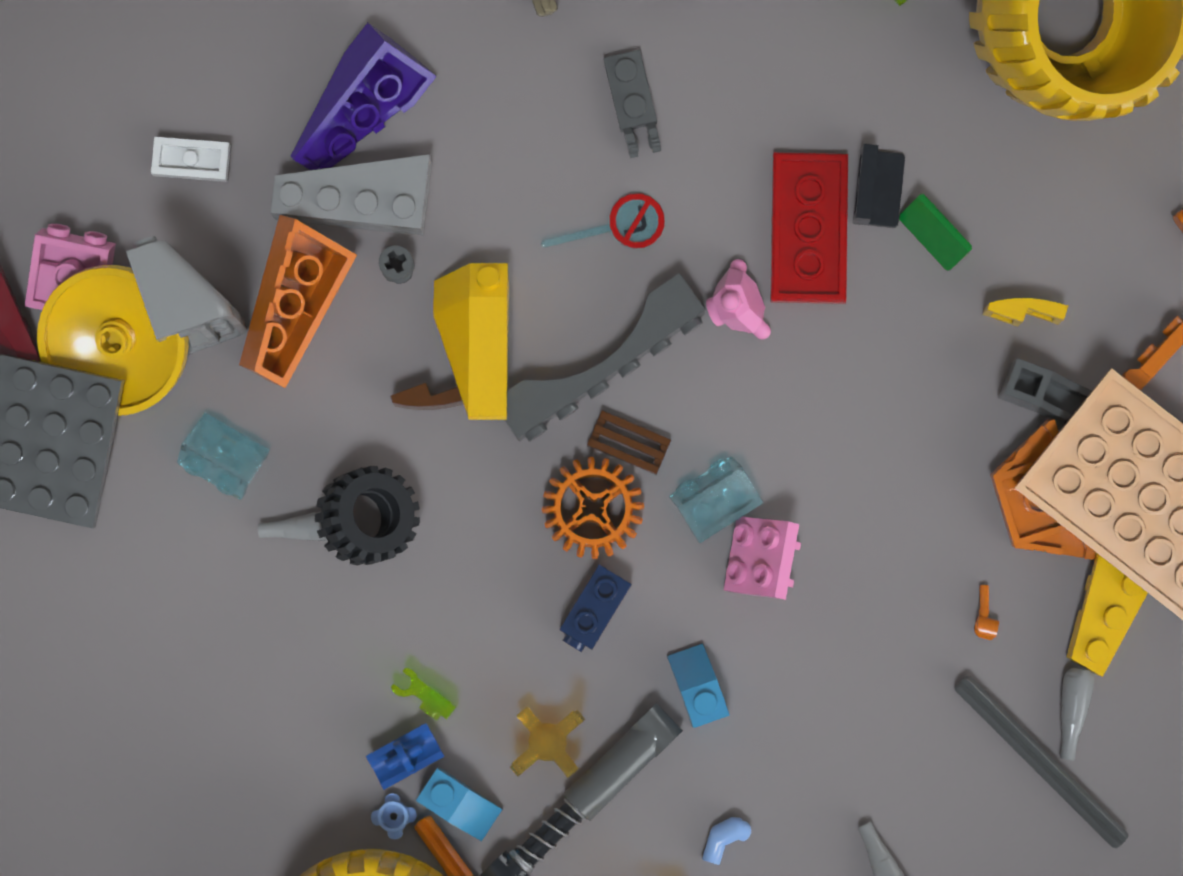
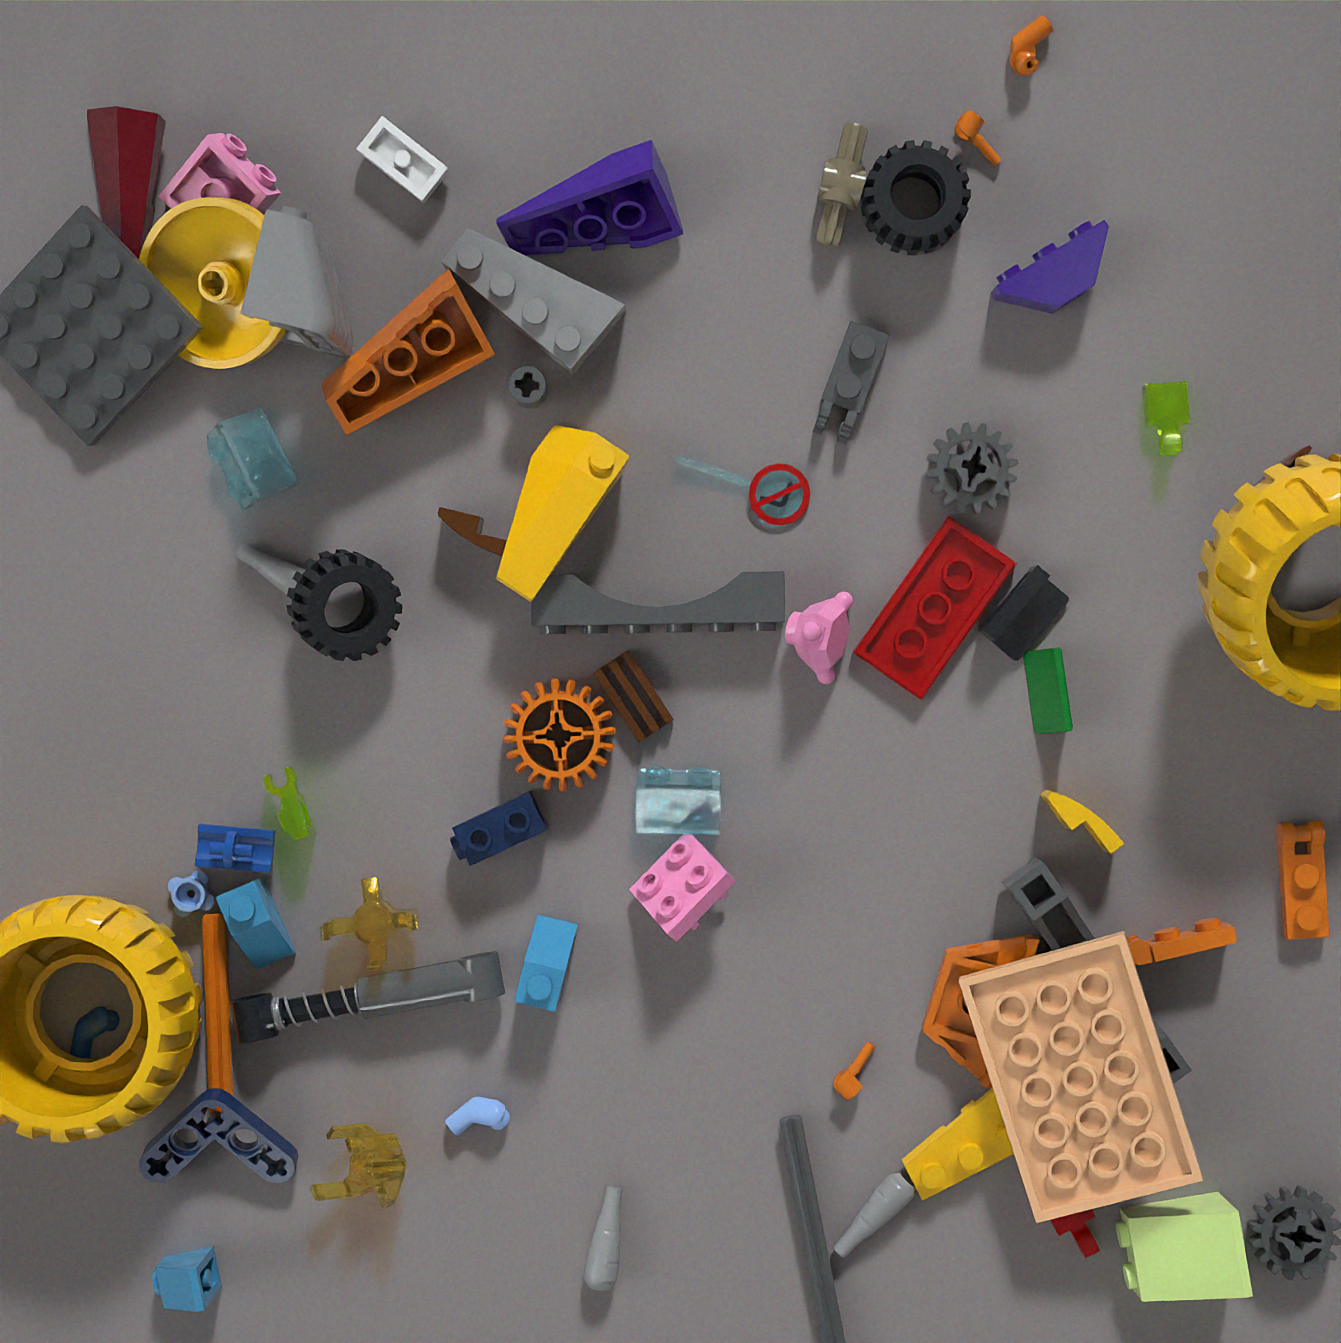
camera: 30 degrees right, 5 degrees up
(751, 111) = (989, 473): none -> dark grey gear

